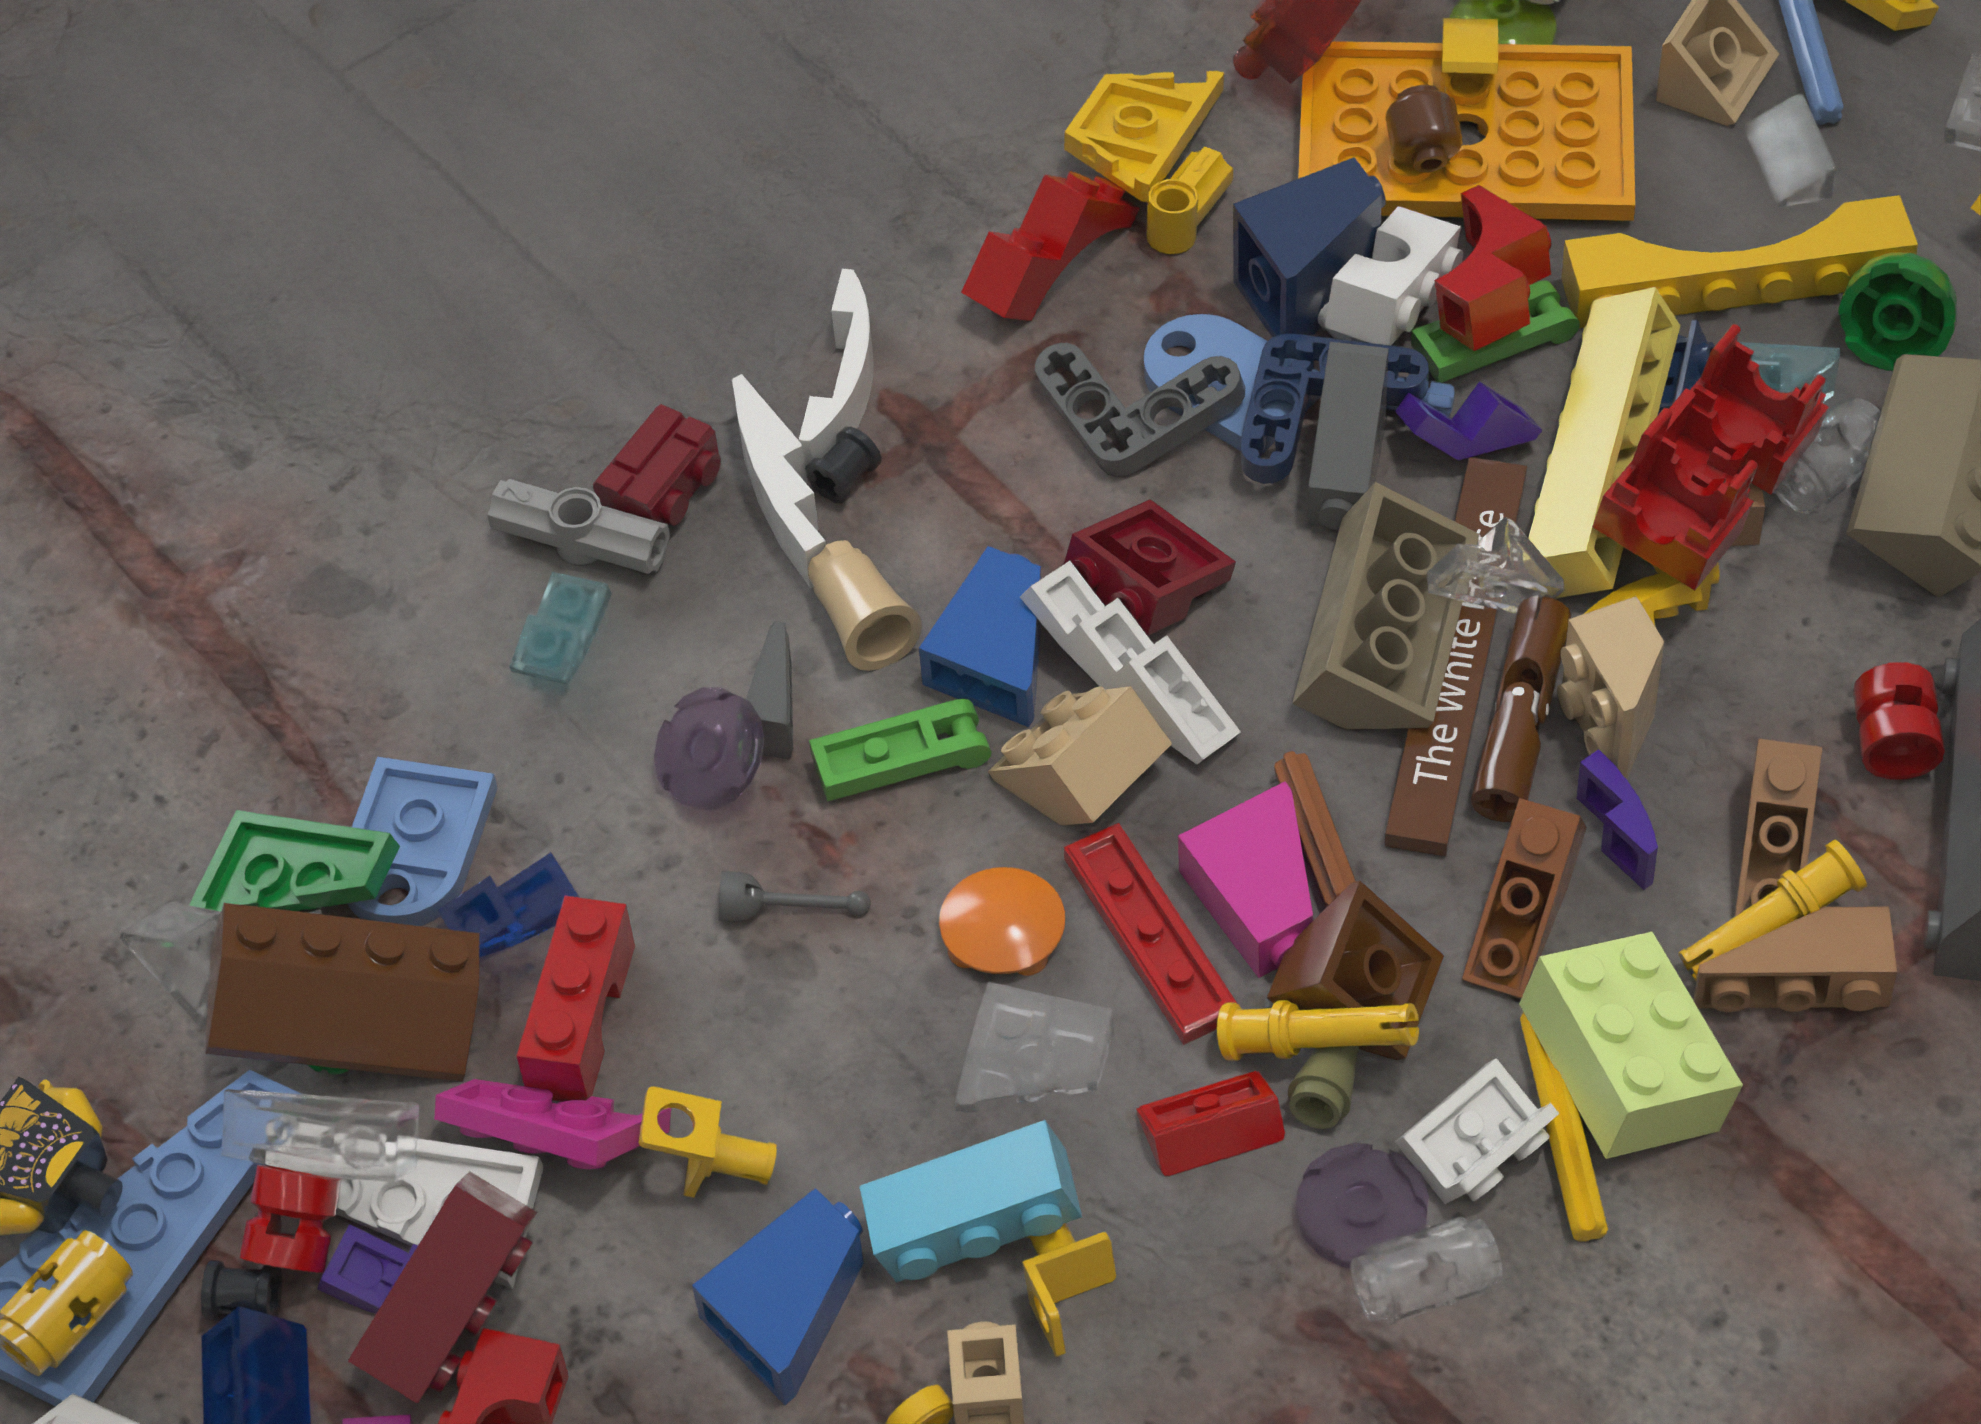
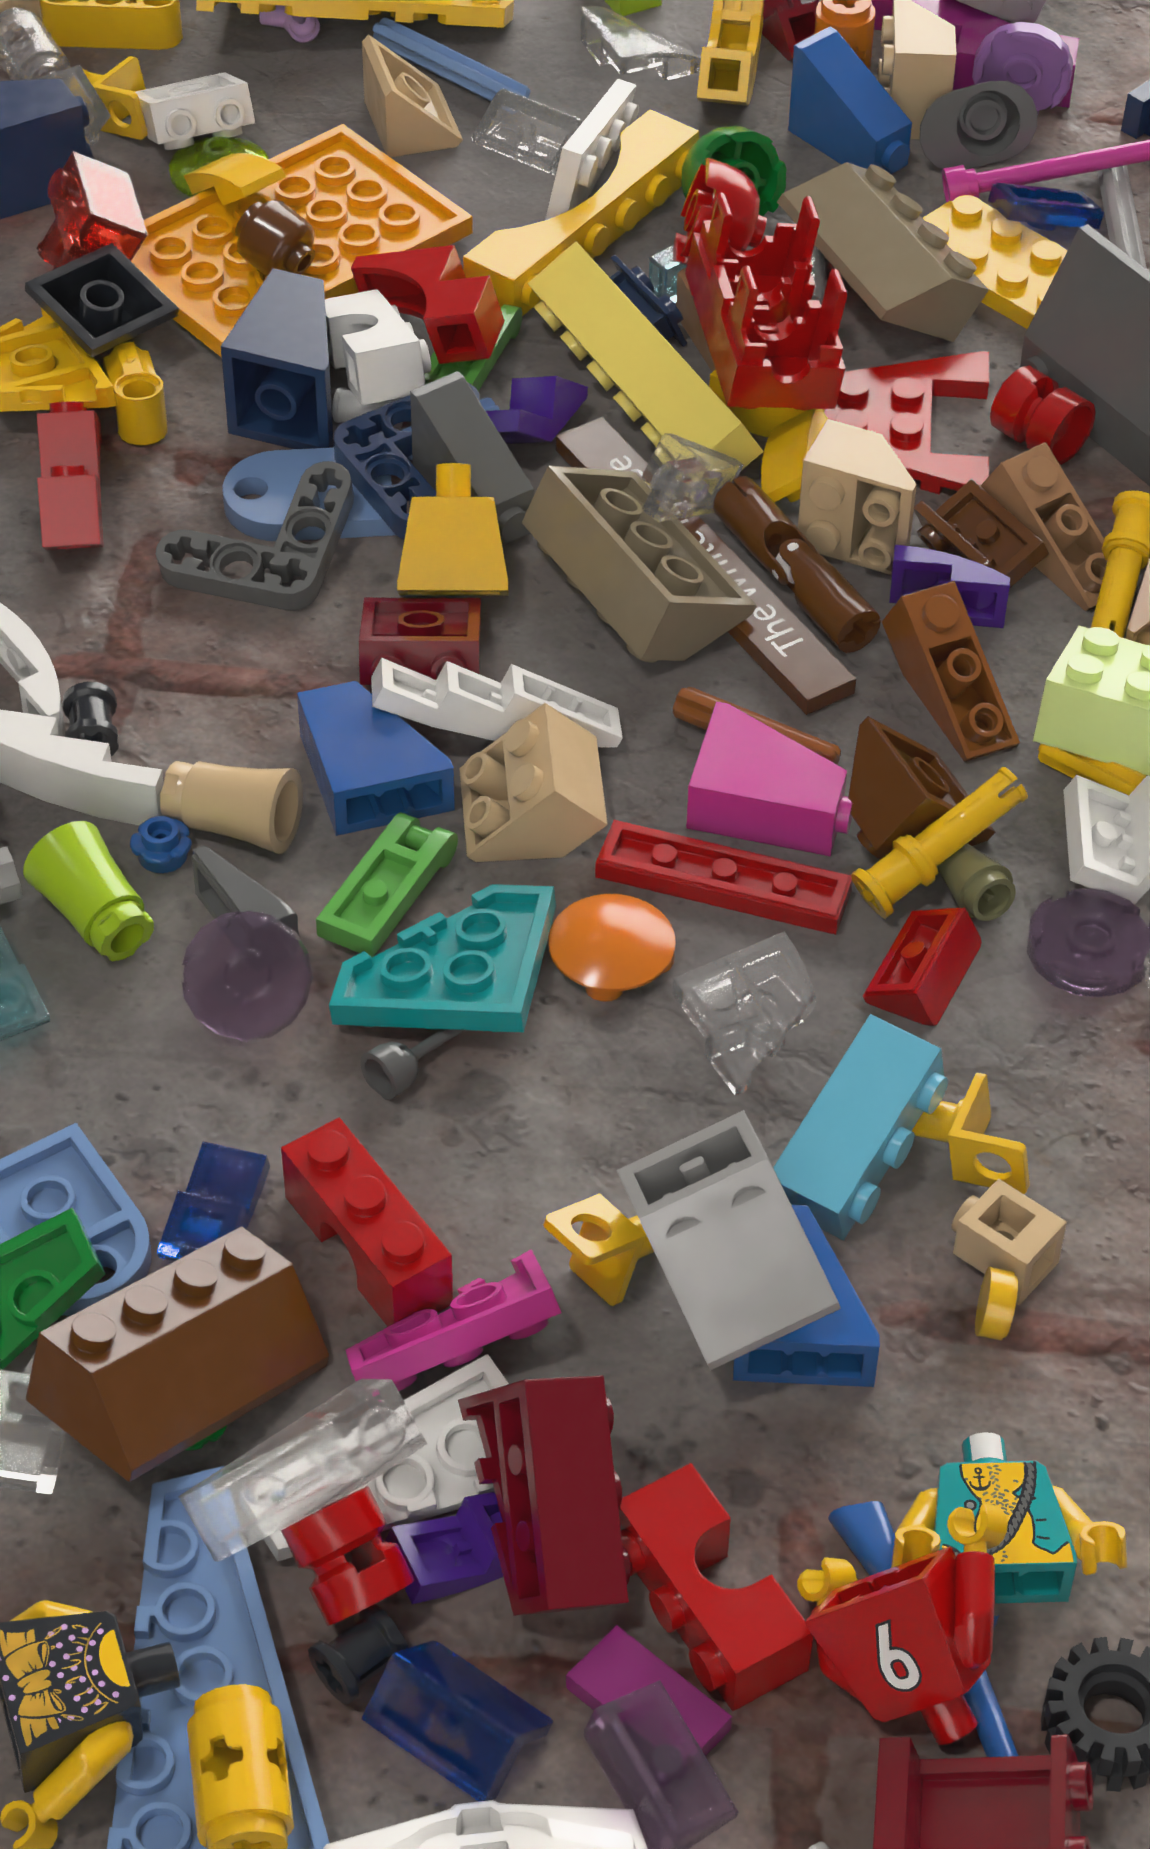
camera: 50 degrees left, 5 degrees down
(688, 601) = (89, 889): none -> lime plant
(746, 1203) = (728, 1240): none -> light grey slope
(789, 610) = (161, 844): none -> blue plate
(867, 855) = (454, 970): none -> teal plate
(1223, 99) = (101, 299): none -> black slope
(1251, 499) = (452, 541): none -> yellow torso
(1700, 795) = (982, 531): none -> reddish brown bracket
(1776, 625) = (899, 406): none -> wing
(1795, 203) = (591, 148): none -> white wing
(1796, 339) = (700, 201): none -> red cylinder

